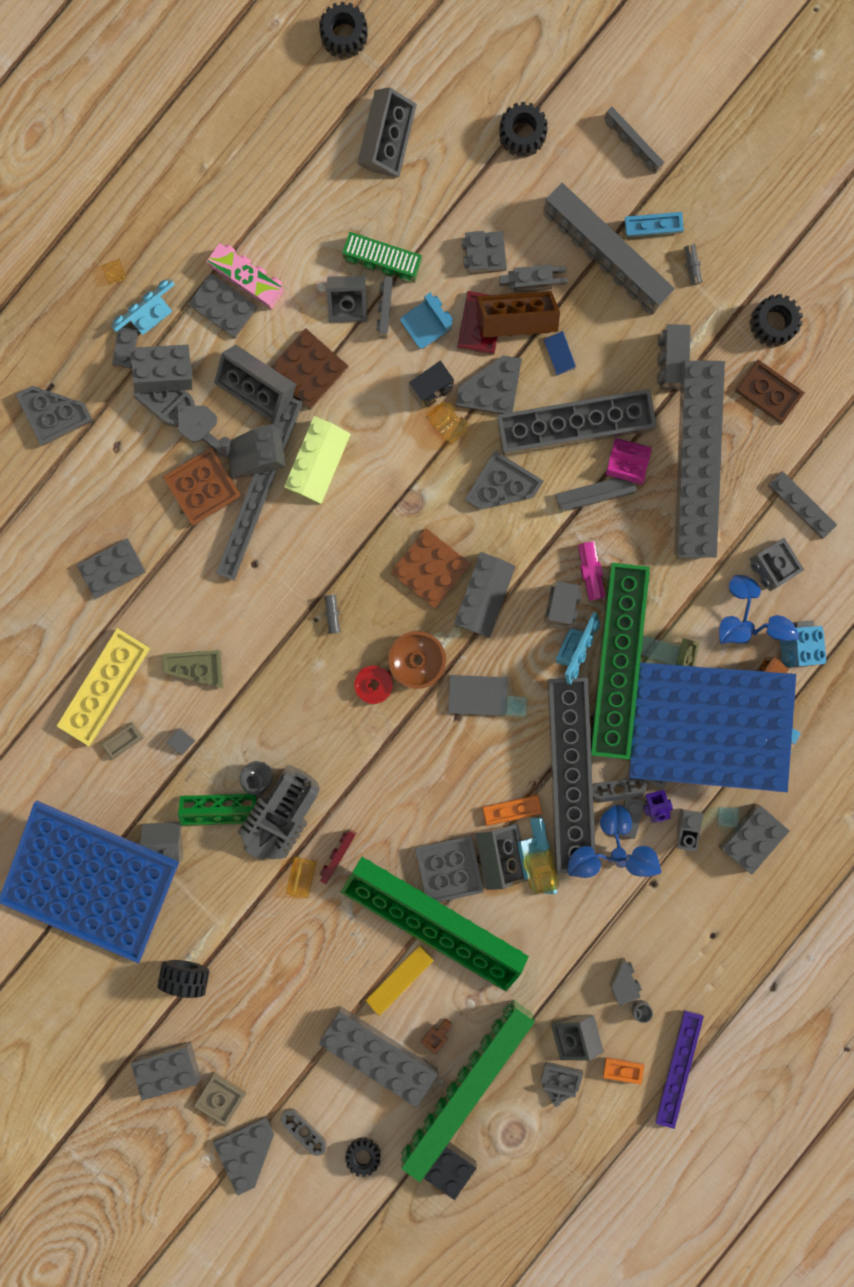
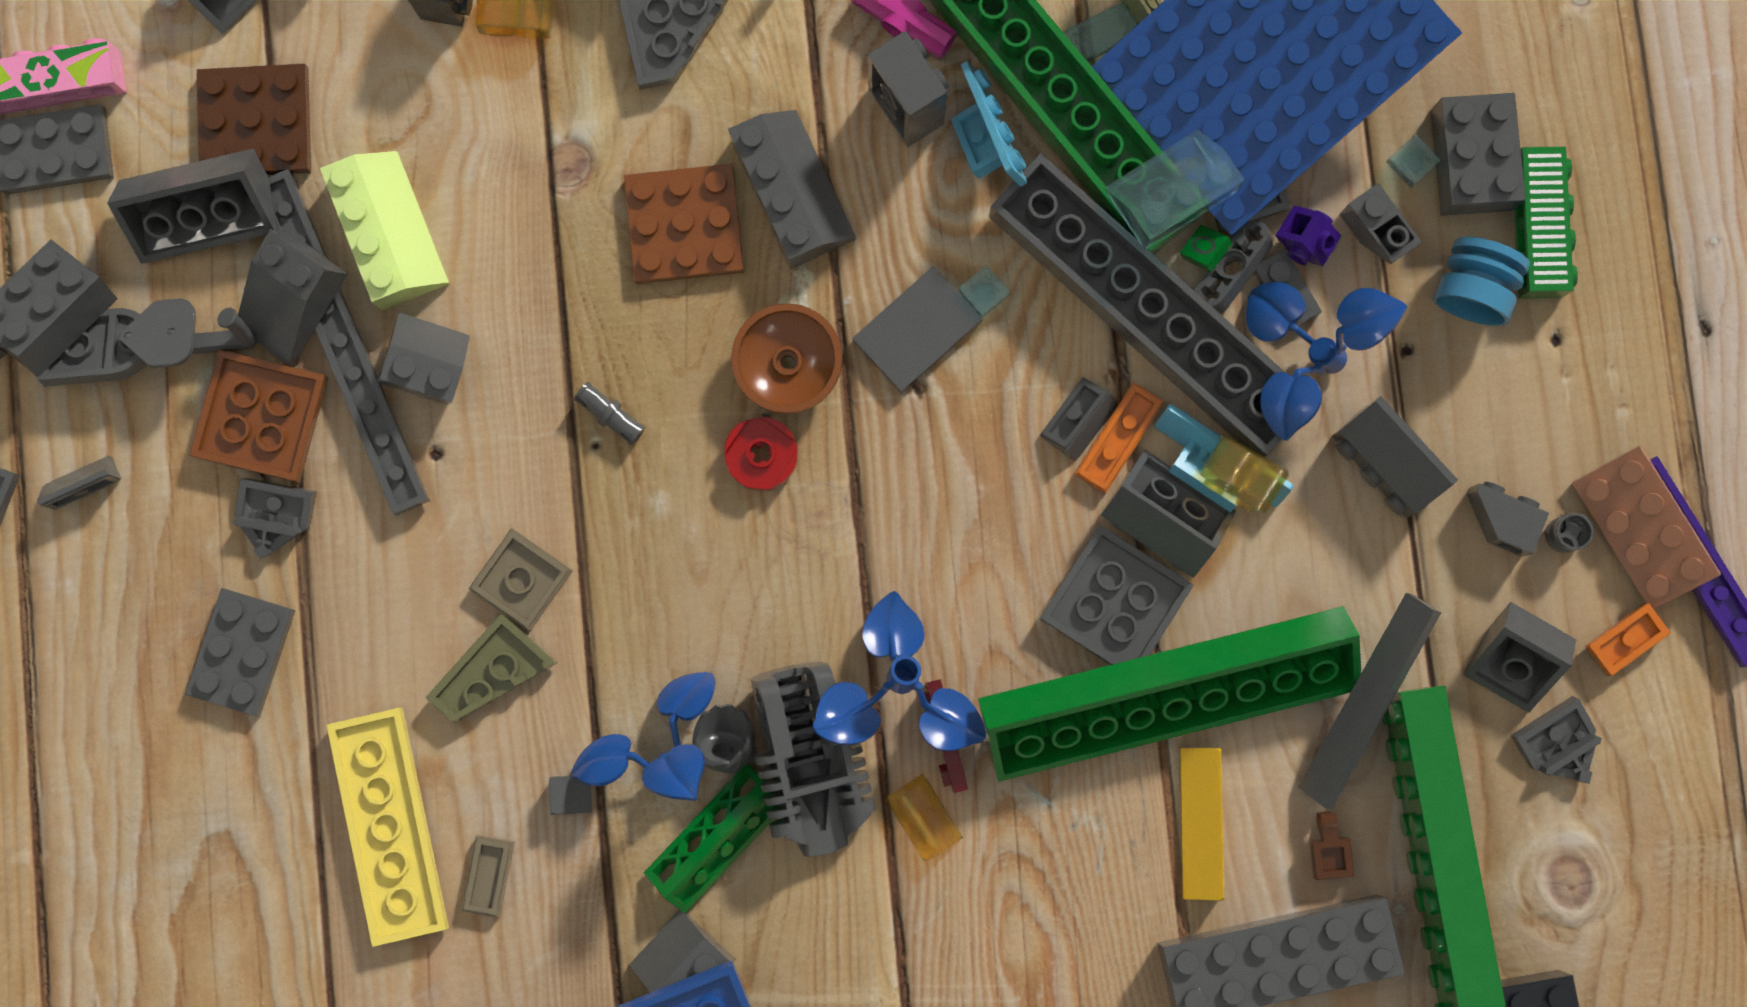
camera: 50 degrees left, 5 degrees down
(112, 445) = (79, 483): none -> dark grey slope
(172, 528) = (272, 513): none -> dark grey slope
(225, 774) = (672, 773): none -> blue plant
(239, 643) = (520, 579): none -> dark tan tile
(283, 526) = (424, 359): none -> dark grey slope
(308, 814) = (848, 716): none -> blue plant
(503, 998) = (1369, 700): none -> dark grey tile
(504, 788) = (1079, 419): none -> dark grey slope
(603, 919) = (1393, 458): none -> dark grey slope
(615, 772) = (1205, 248): none -> green tile
(623, 740) = (1174, 187): none -> clear light blue slope
(672, 1037) = (1646, 527): none -> nougat plate
(704, 888) = (1481, 281): none -> dark azure wheel
(750, 889) = (1544, 224): none -> green brick

